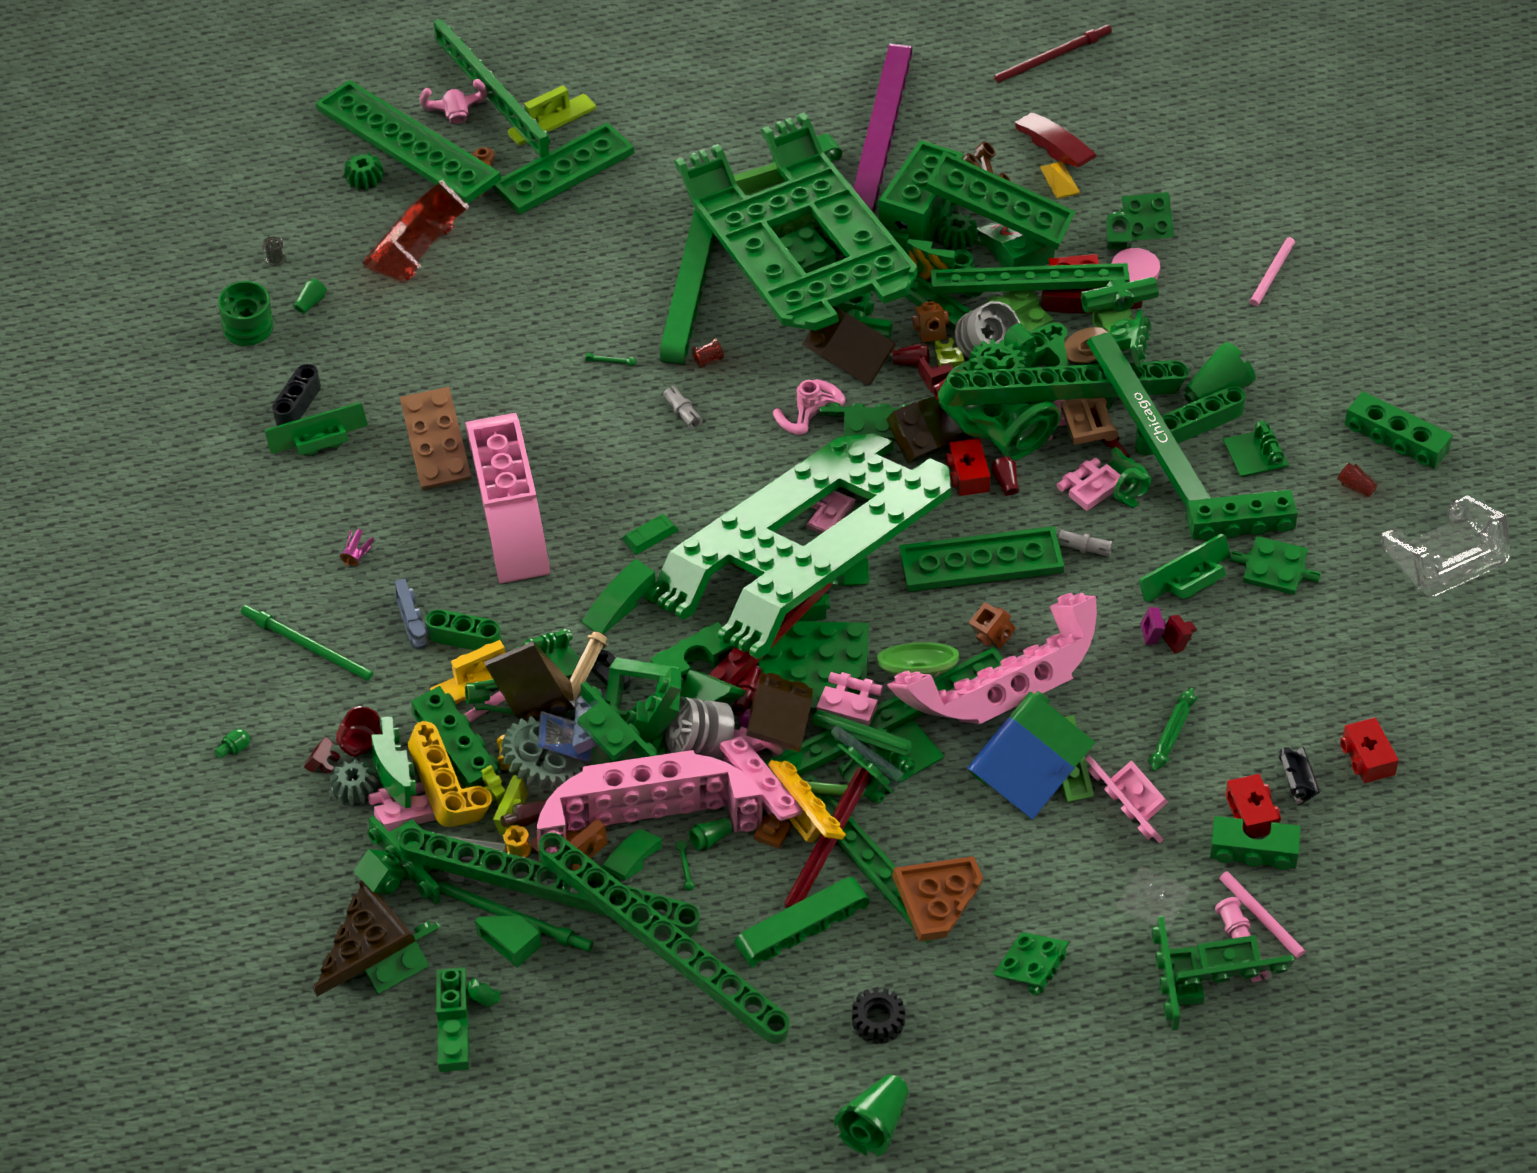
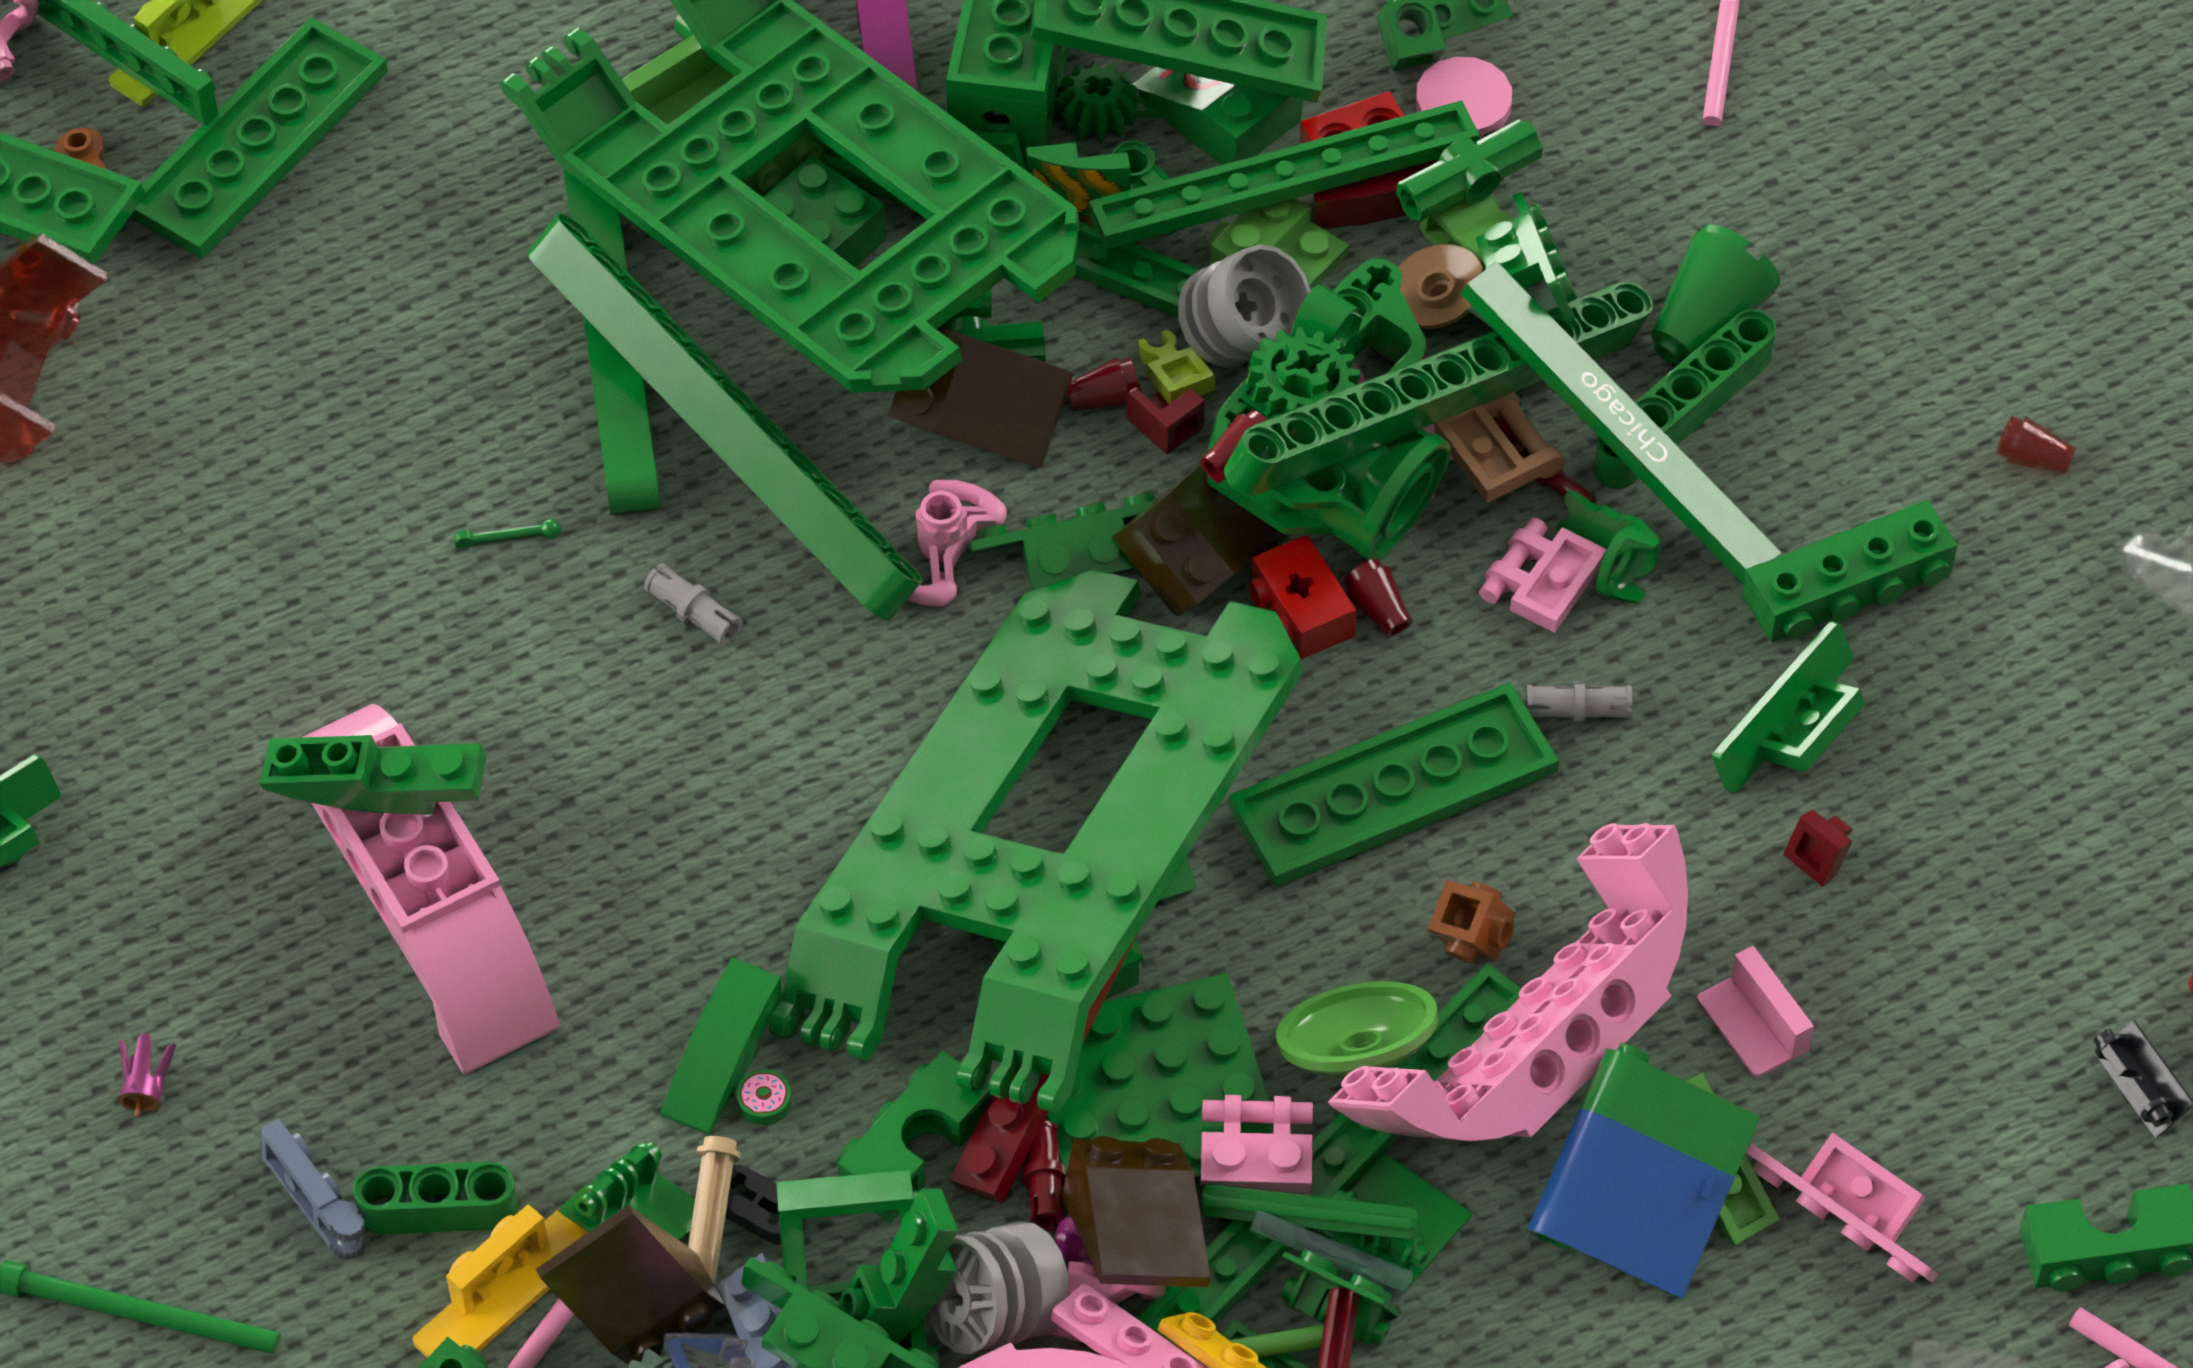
camera: 20 degrees left, 5 degrees up
(435, 438) = (213, 796): medium nougat plate -> none
(479, 692) = (523, 1325): green plant -> none
(492, 436) = (370, 778): none -> green slope
(631, 625) = (764, 1097): none -> tile
(649, 534) = (726, 892): green tile -> none
(706, 687) = (987, 1198): green slope -> none
(707, 353) = (699, 476): clear red bush -> none
(725, 328) = (725, 417): none -> green beam
(830, 511) = (1067, 761): bright pink tile -> none
(930, 322) = (1119, 308): dark orange brick -> none
(1117, 702) = (1757, 1015): none -> bright pink panel
(1152, 625) = (1767, 842): magenta plate -> none
(1172, 729) = (1877, 1045): green wheel -> none
(1252, 802) = (2080, 1160): red brick -> none
(1256, 451) = (1826, 431): green hinge -> none
(1275, 565) = (1946, 658): green plate -> none
(1398, 430) = (2073, 325): green brick -> none

